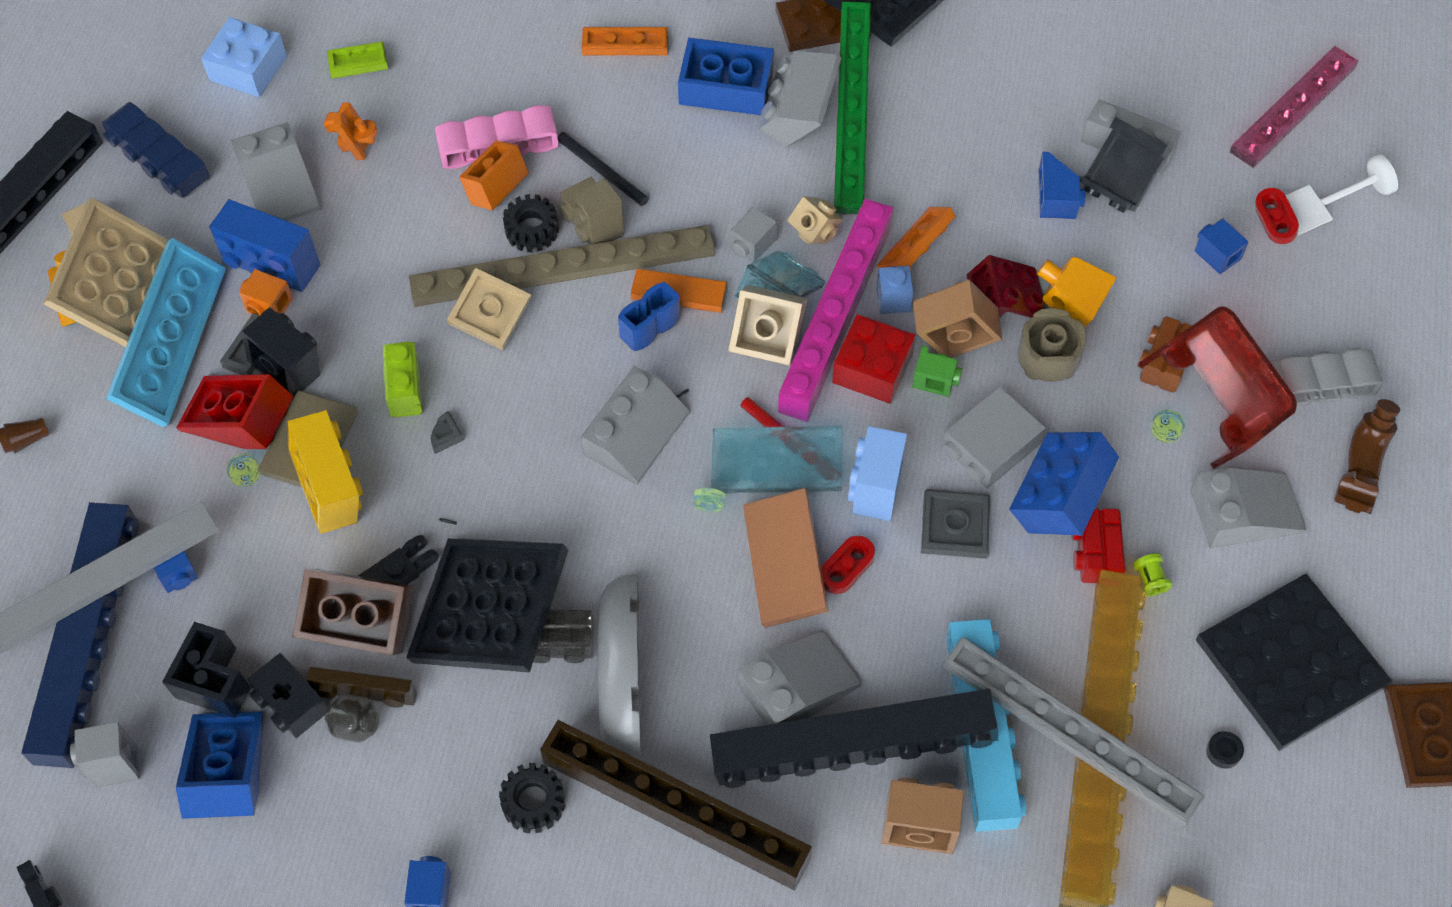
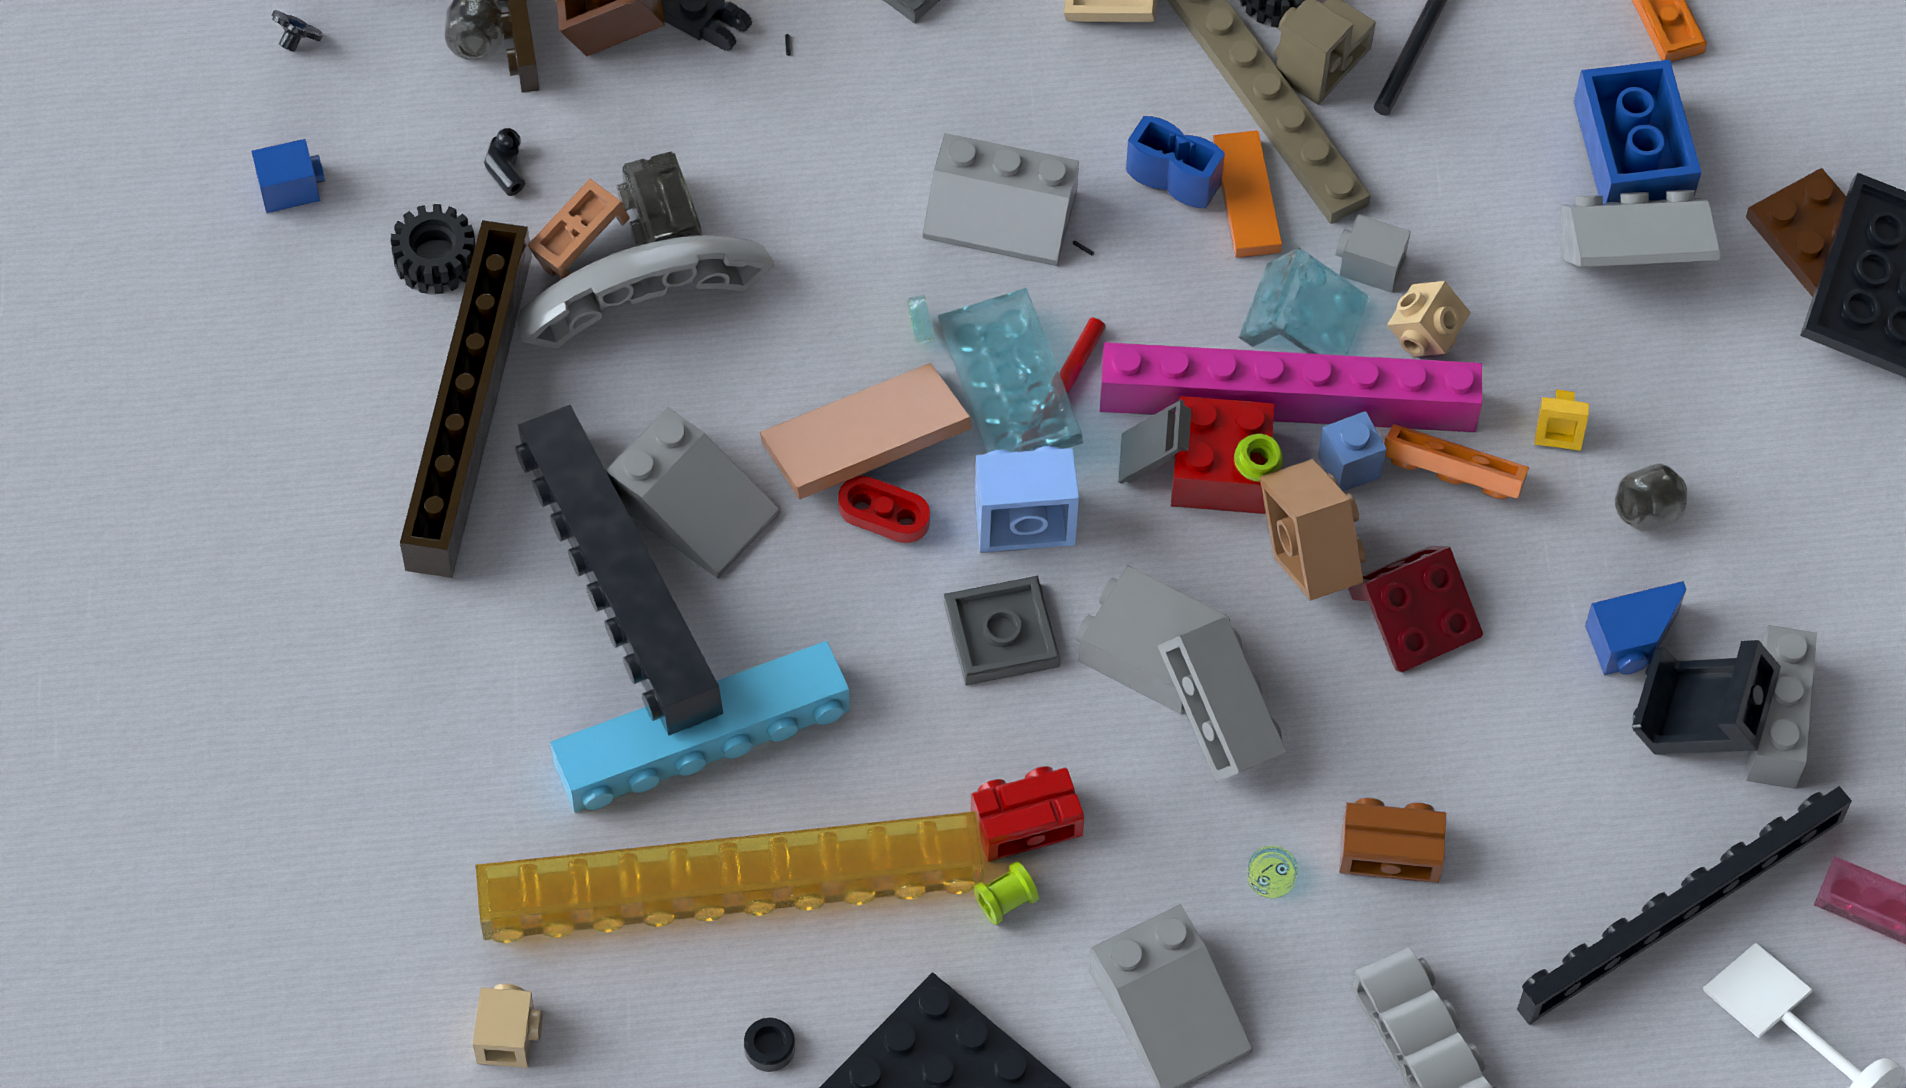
camera: 70 degrees right, 0 degrees up
(295, 847) = (294, 30): none -> black plant
(470, 732) = (501, 160): none -> black arm
(488, 604) = (667, 111): black plate -> none
(566, 689) = (576, 228): none -> nougat hinge
(767, 324) = (1213, 296): tan brick -> none
(852, 107) = (1658, 310): green tile -> none
(857, 391) = (1154, 442): none -> dark grey piece
(905, 325) = (1258, 444): none -> lime plate
(906, 178) = (1561, 421): none -> yellow tile
(922, 816) = (537, 673): medium nougat brick -> none
(936, 373) = (1234, 539): bright green brick -> none
(973, 152) = (1651, 497): none -> clear smoke head
(1051, 345) = (1335, 674): dark tan brick -> none
(1059, 406) = (1222, 698): none -> light grey brick
(1064, 483) = (1097, 732): blue brick -> none
(1074, 732) = (710, 823): light grey tile -> none
(1076, 288) = (1449, 686): light orange torso -> none
(1221, 245) = (1627, 877): blue brick -> none
(1236, 376) = (1375, 918): clear red windscreen -> none
(1241, 217) = (1668, 913): none -> black plate
(1278, 218) = (1719, 950): red plate -> none

